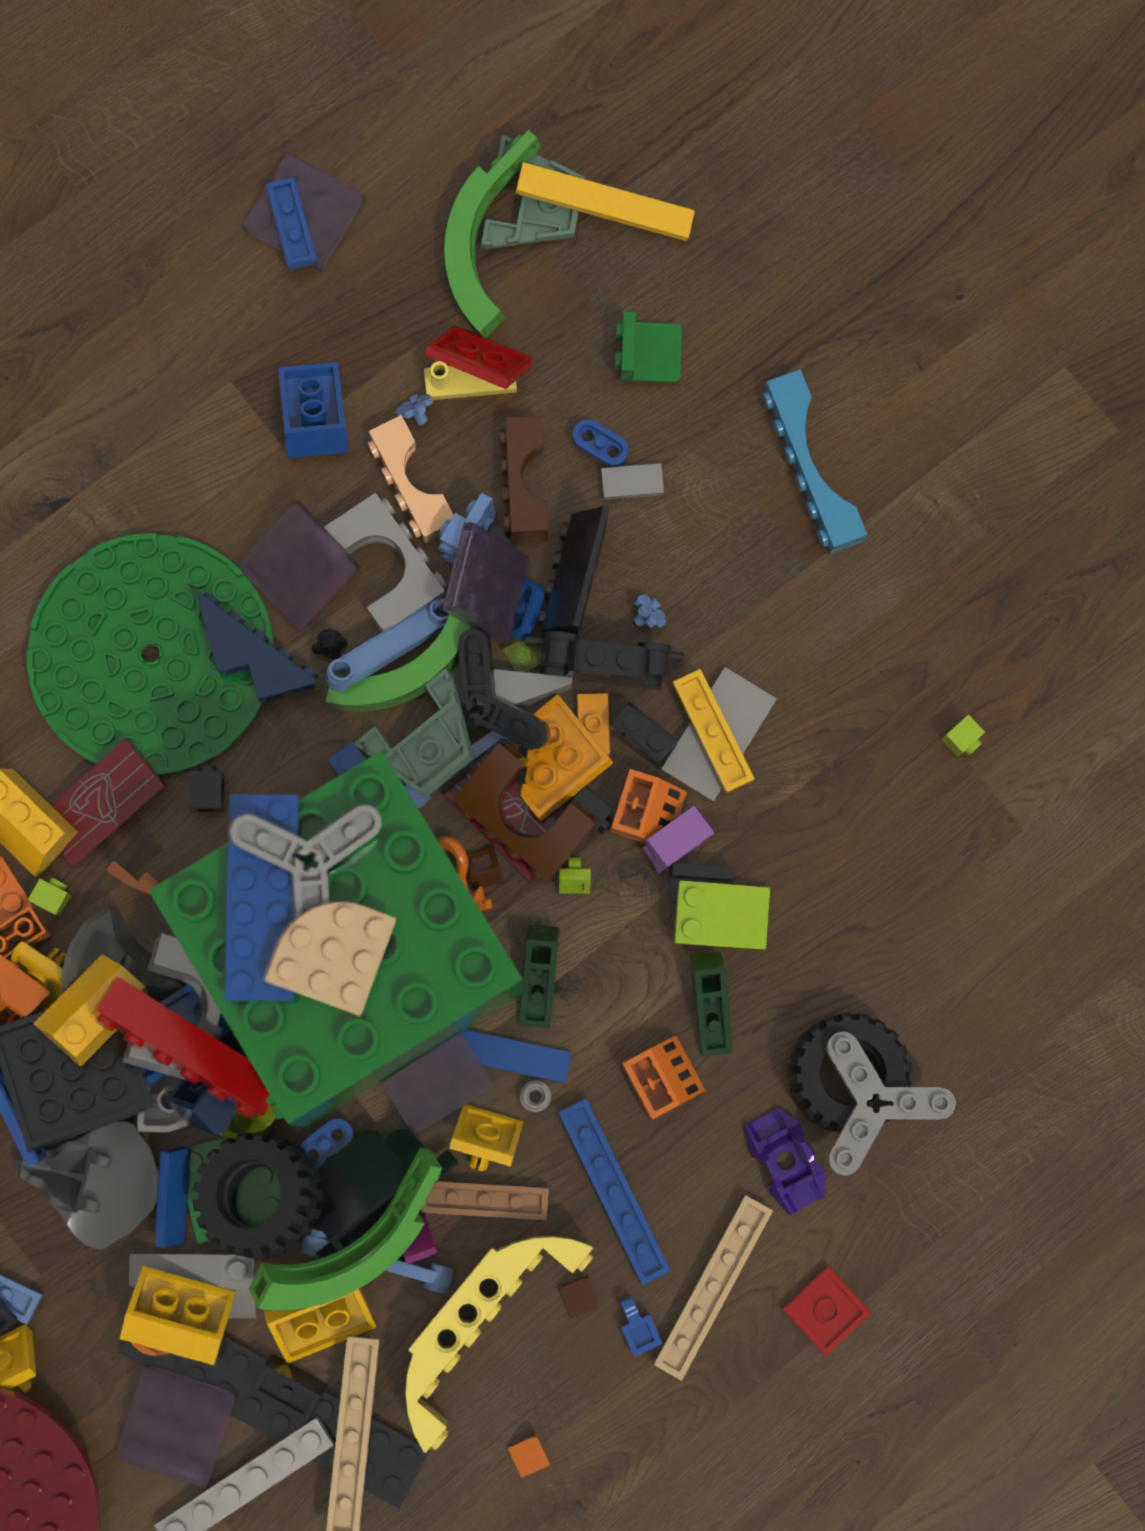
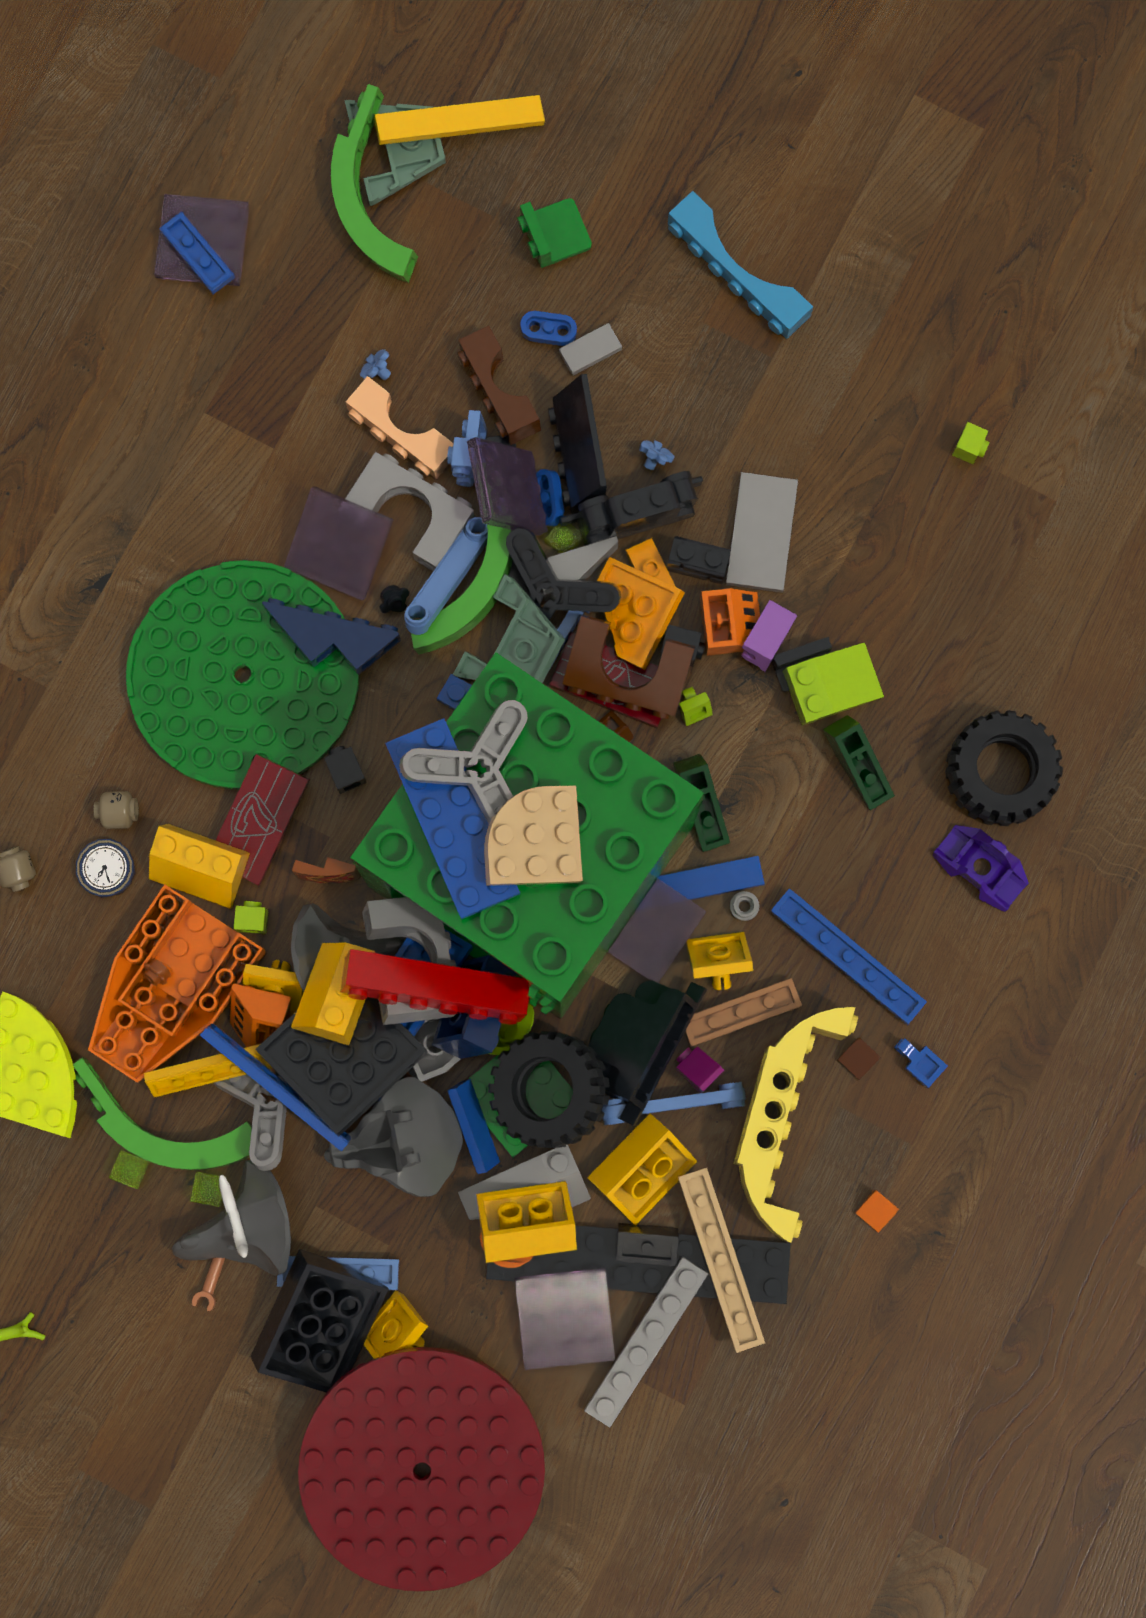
camera: 15 degrees left, 0 degrees up
(312, 410) = (288, 405): blue slope -> none
(324, 1143) = (581, 1024): blue plate -> none
(360, 1262) = (664, 1104): bright green arch -> none
(449, 383) = (411, 322): light yellow piece -> none
(479, 356) = (412, 297): red tile -> none
(663, 1077) = (846, 842): orange slope -> none
(713, 731) = (756, 530): yellow plate -> none
(713, 1287) = (968, 1000): tan plate -> none
(826, 1310) = (1072, 978): red tile -> none
(863, 1123) = (1037, 802): light grey piece -> none

